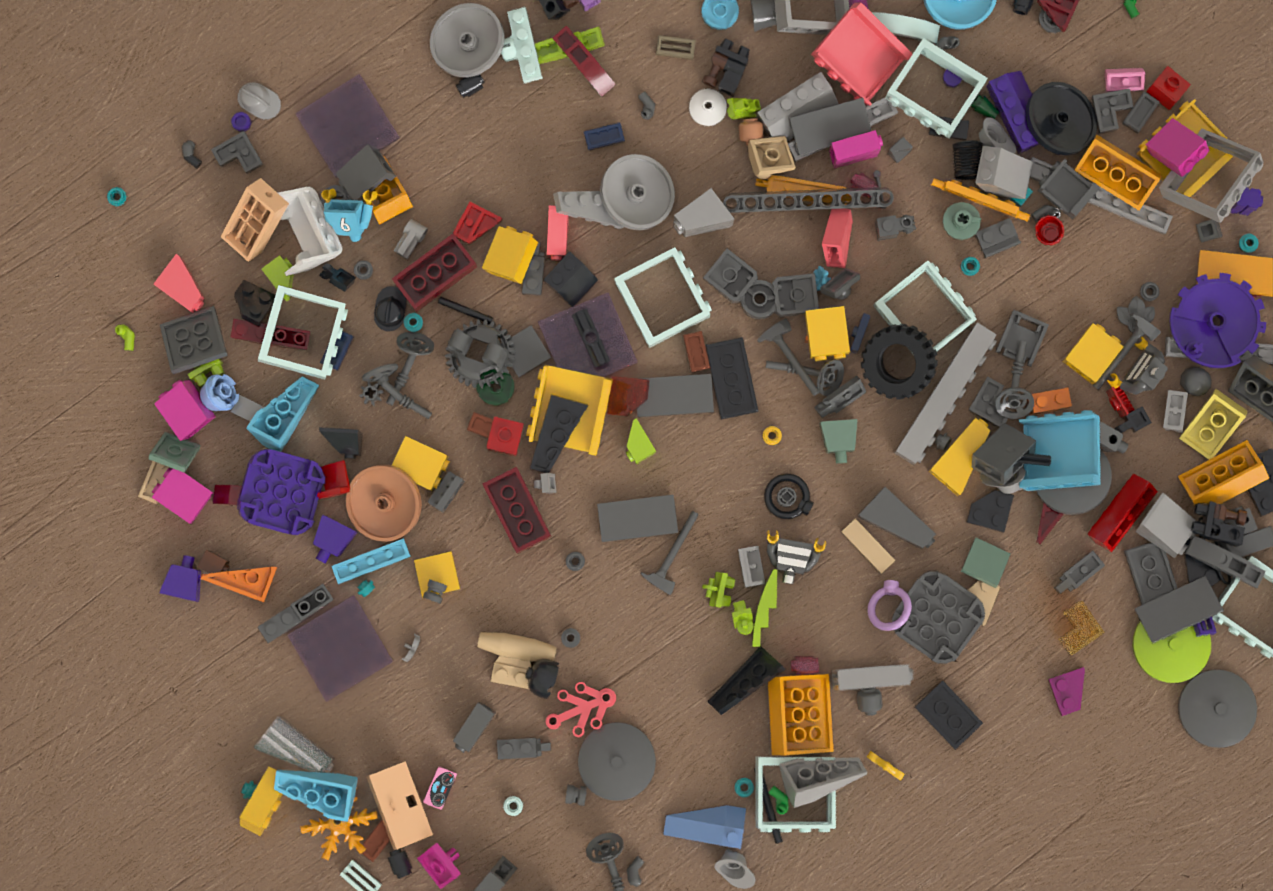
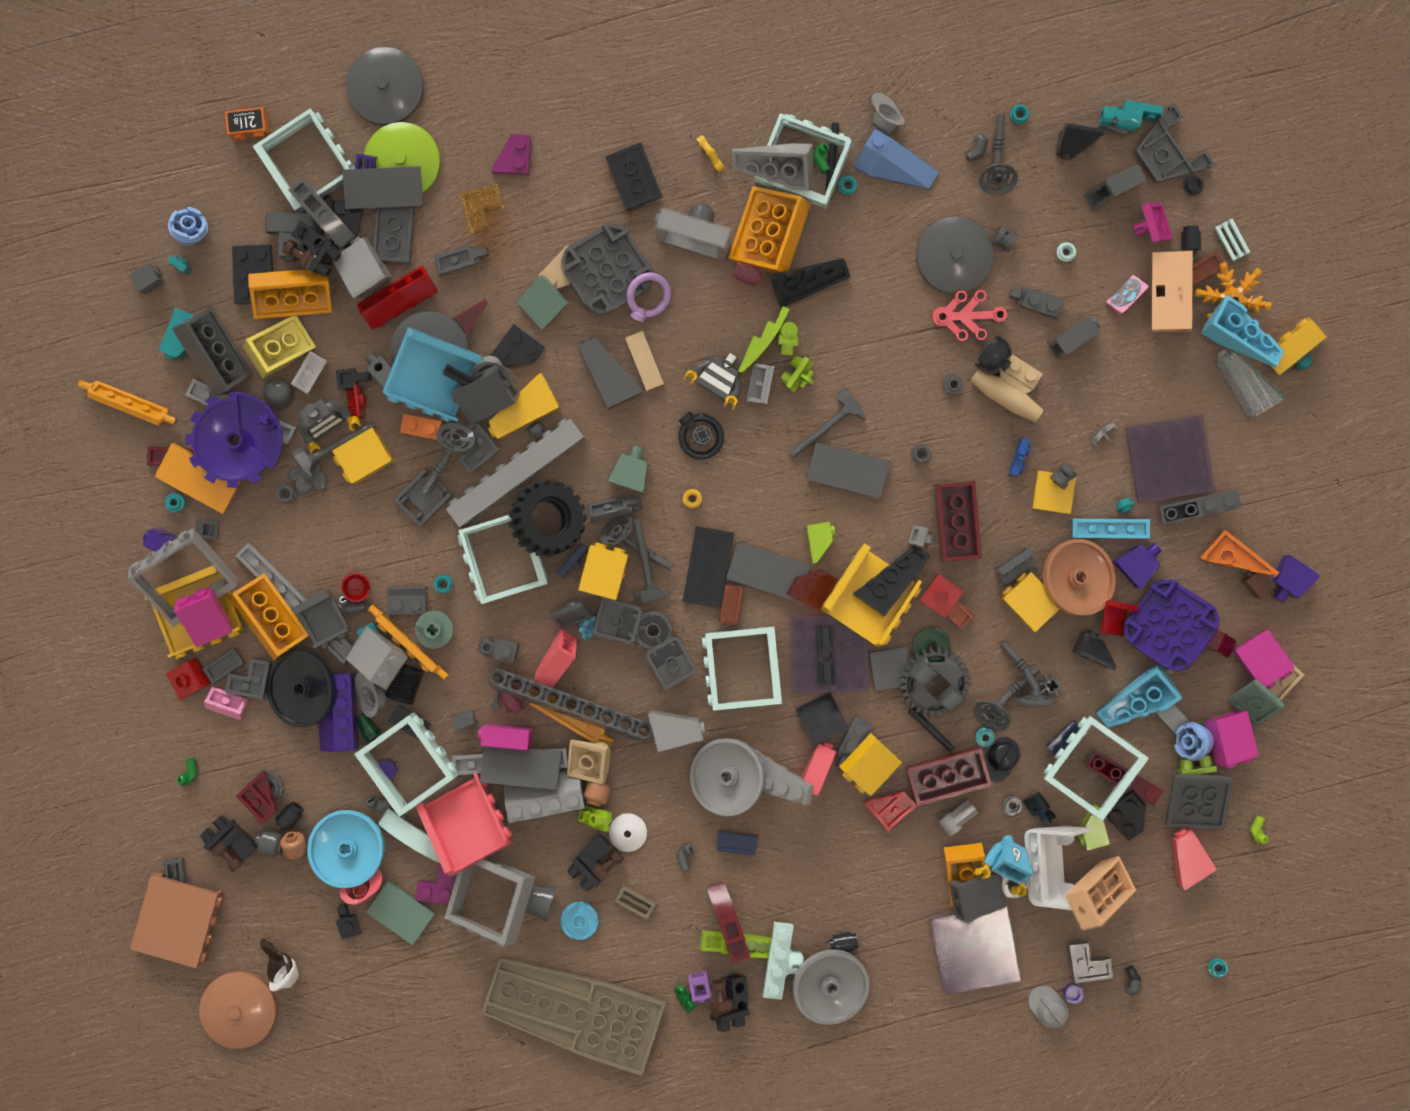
camera: 160 degrees left, 5 degrees up
(481, 585) = (1022, 450): none -> blue plate

